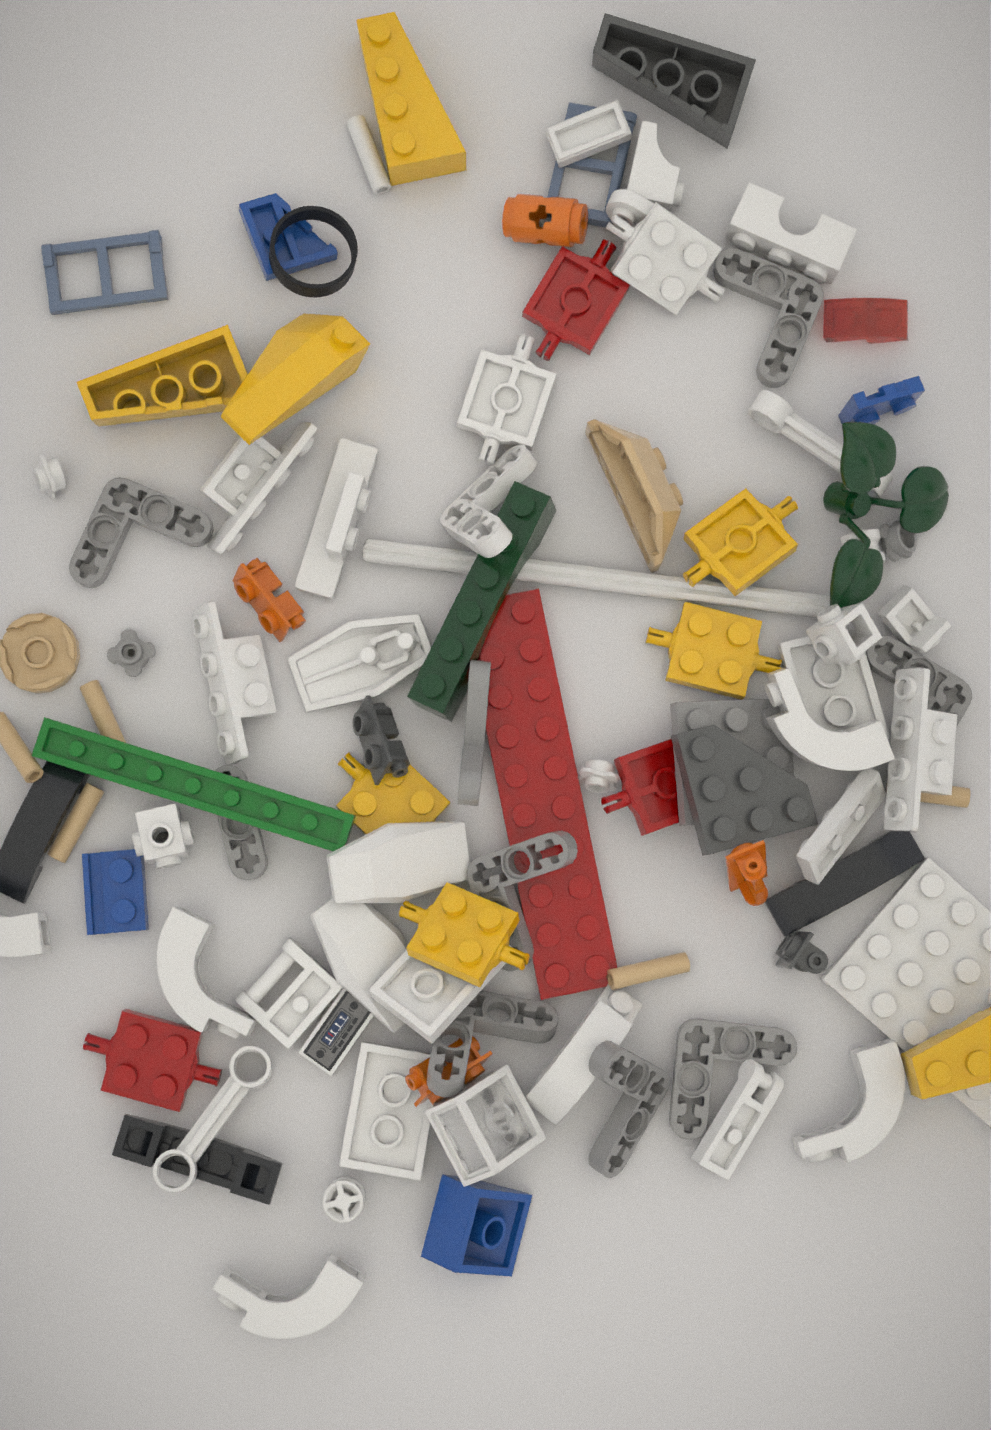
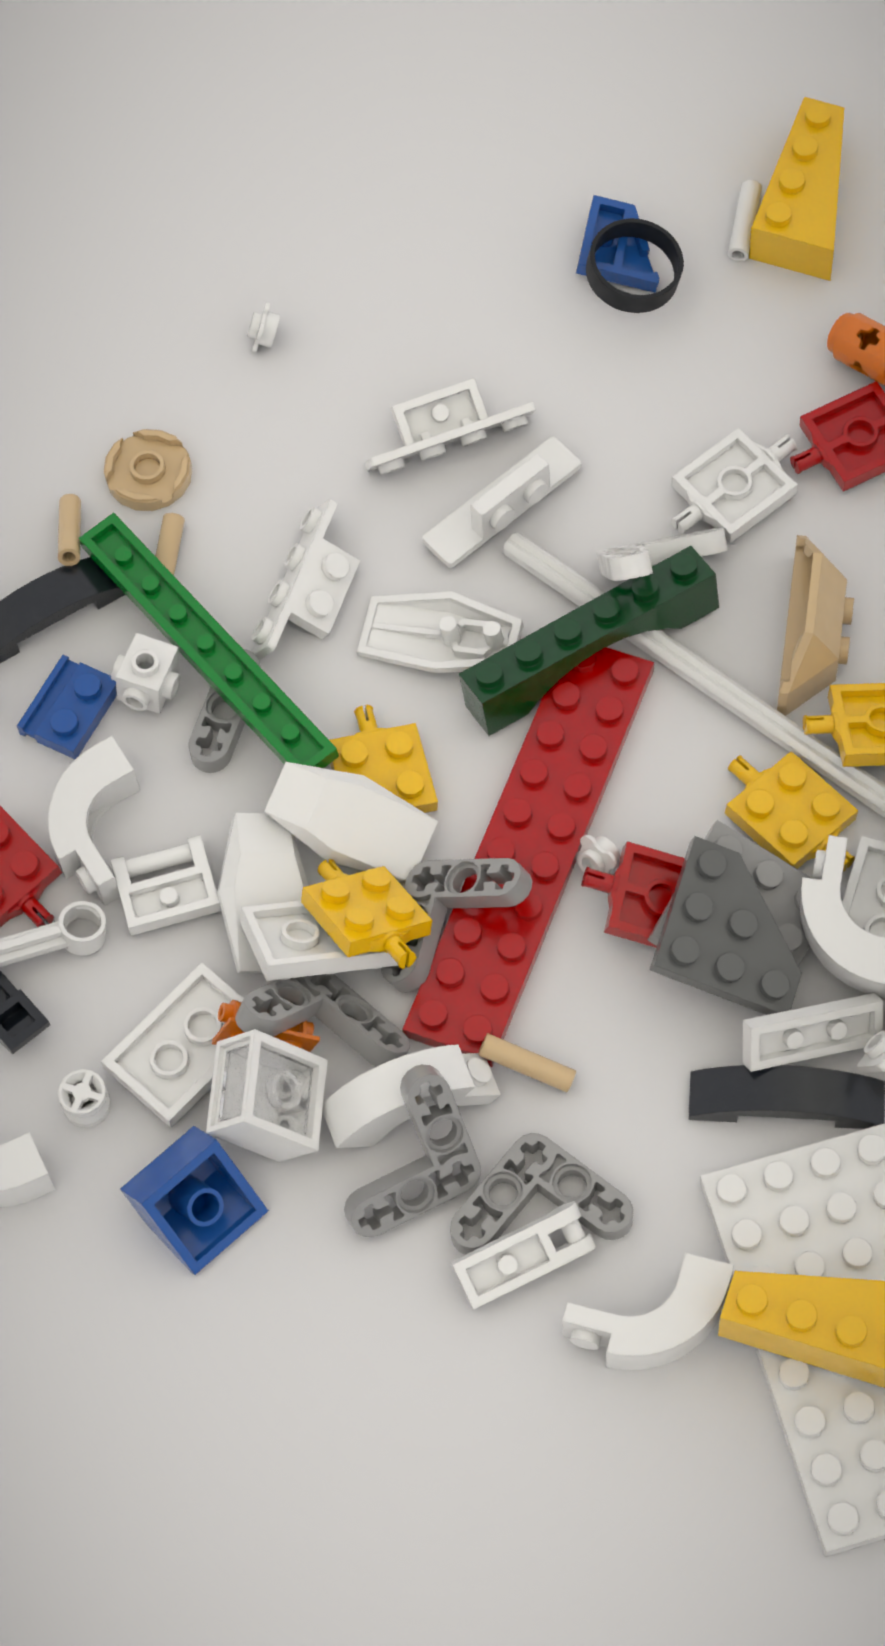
camera: 40 degrees right, 20 degrees down
(75, 823) = (76, 627): tan piece -> none
(107, 299) = (421, 218): sand blue window -> none
(122, 518) = (304, 398): light grey beam -> none
(134, 664) = (231, 523): light grey plate -> none
(169, 383) = (428, 305): yellow wedge -> none
(256, 585) = (386, 518): orange hinge -> none
(293, 371) = (546, 352): yellow wedge -> none
(336, 1033) = (185, 946): tile -> none
(374, 726) = (408, 707): dark grey hinge -> none
(474, 734) = (486, 768): light grey beam -> none
(745, 871) = (688, 1018): orange hinge -> none
(801, 954) = (687, 1124): dark grey hinge -> none

